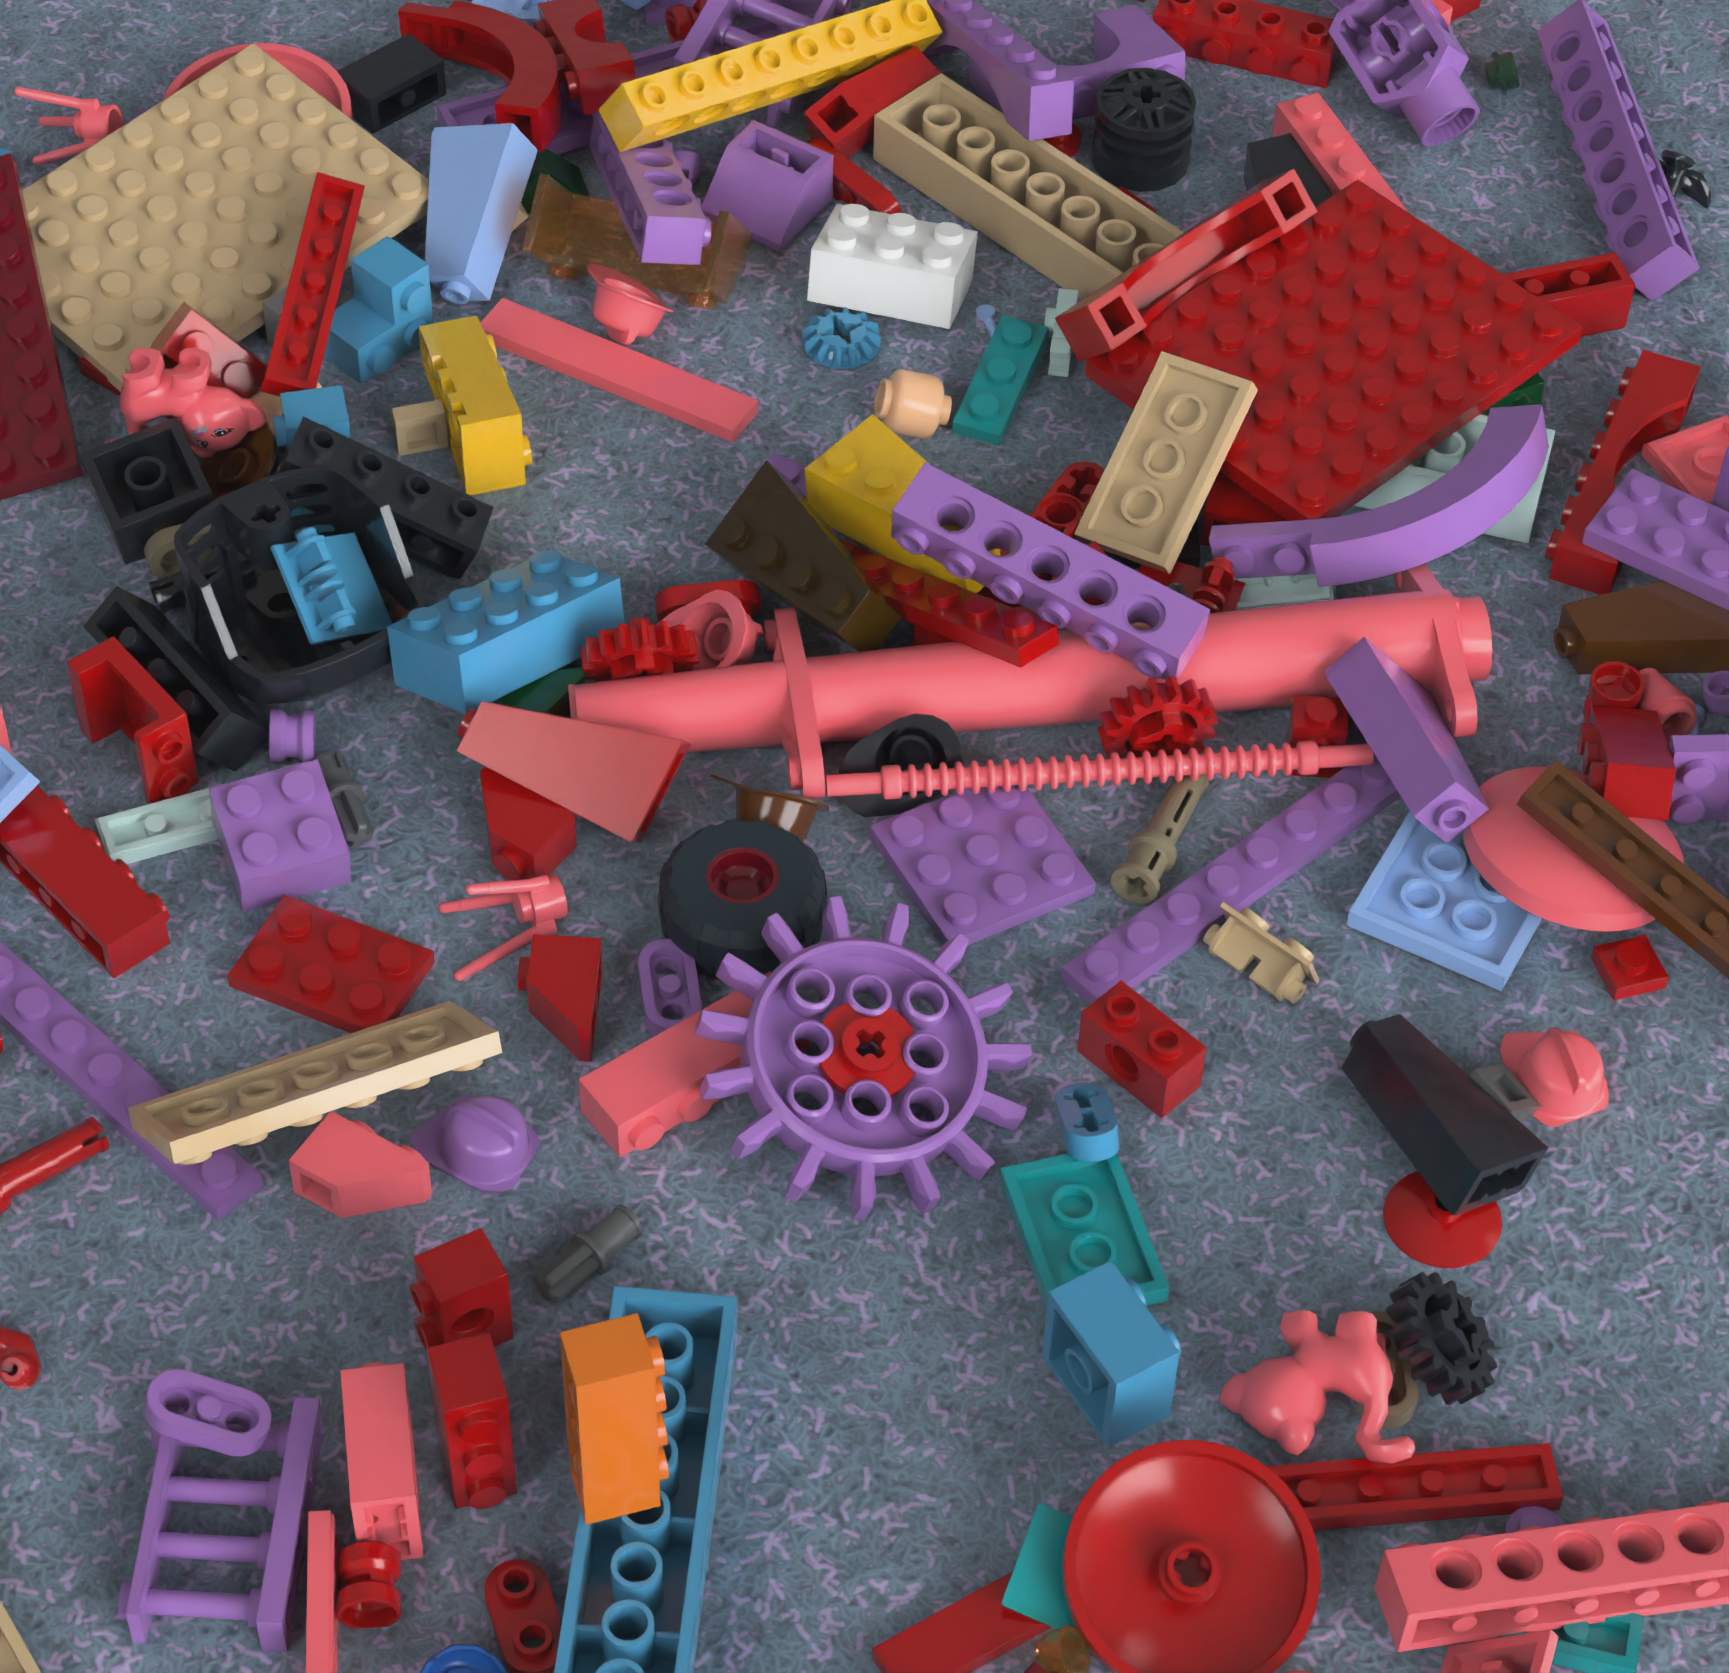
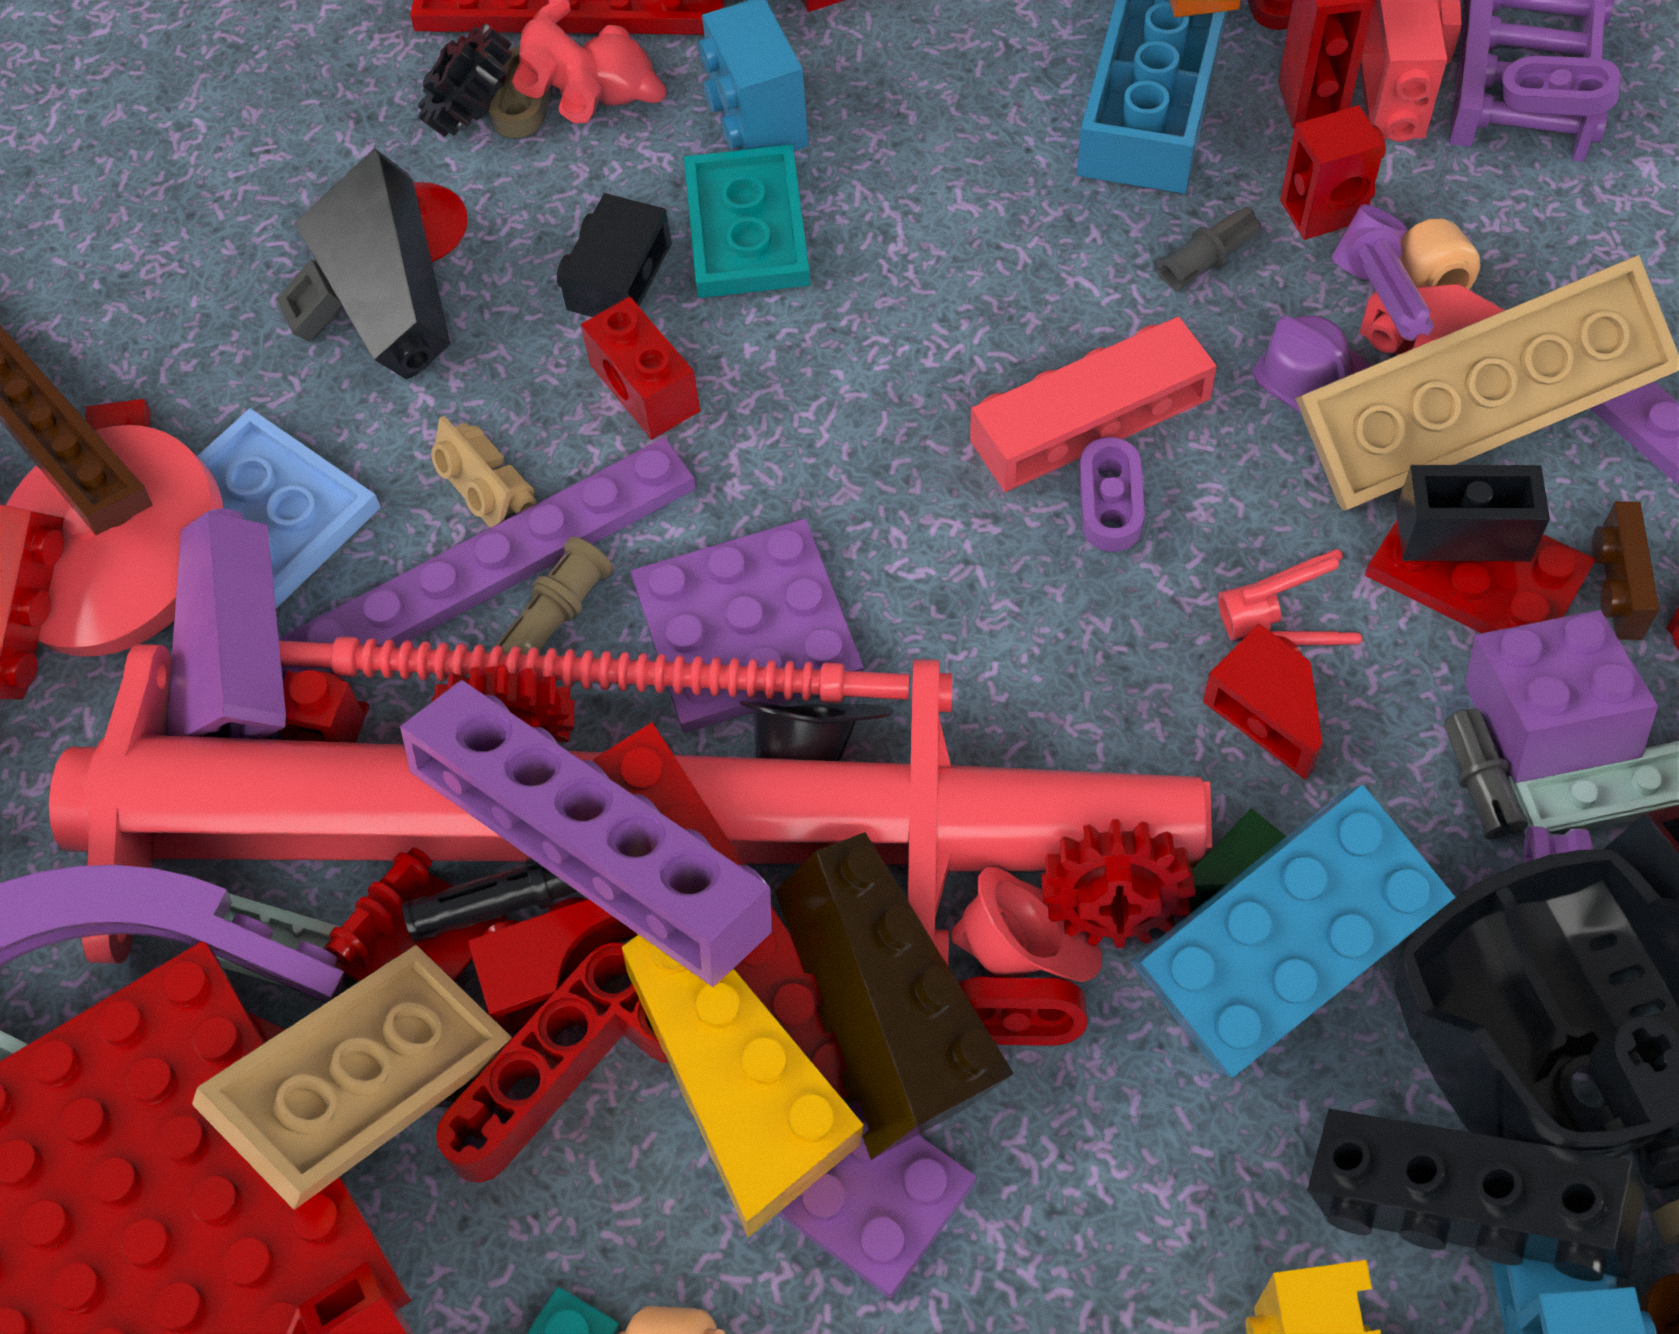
camera: 165 degrees left, 10 degrees up
(205, 978) = (1629, 585): none -> reddish brown plate
(331, 586) = (1539, 1002): dark azure hinge -> none
(346, 936) = (1472, 512): none -> black brick
(353, 1244) = (1439, 255): none -> light nougat head
(408, 1161) = (1373, 253): none -> medium lavender axle
(564, 988) = (1226, 497): red slope -> none
(583, 765) = (1210, 731): slope -> none
(727, 885) = (1023, 567): black wheel -> none
(776, 808) = (990, 696): reddish brown piece -> none
(886, 1075) = (925, 359): medium lavender gear -> none
(1087, 1122) = (701, 302): dark azure beam -> none
(1205, 1167) = (614, 256): none -> black brick
(1559, 1072) = (243, 336): coral piece -> none

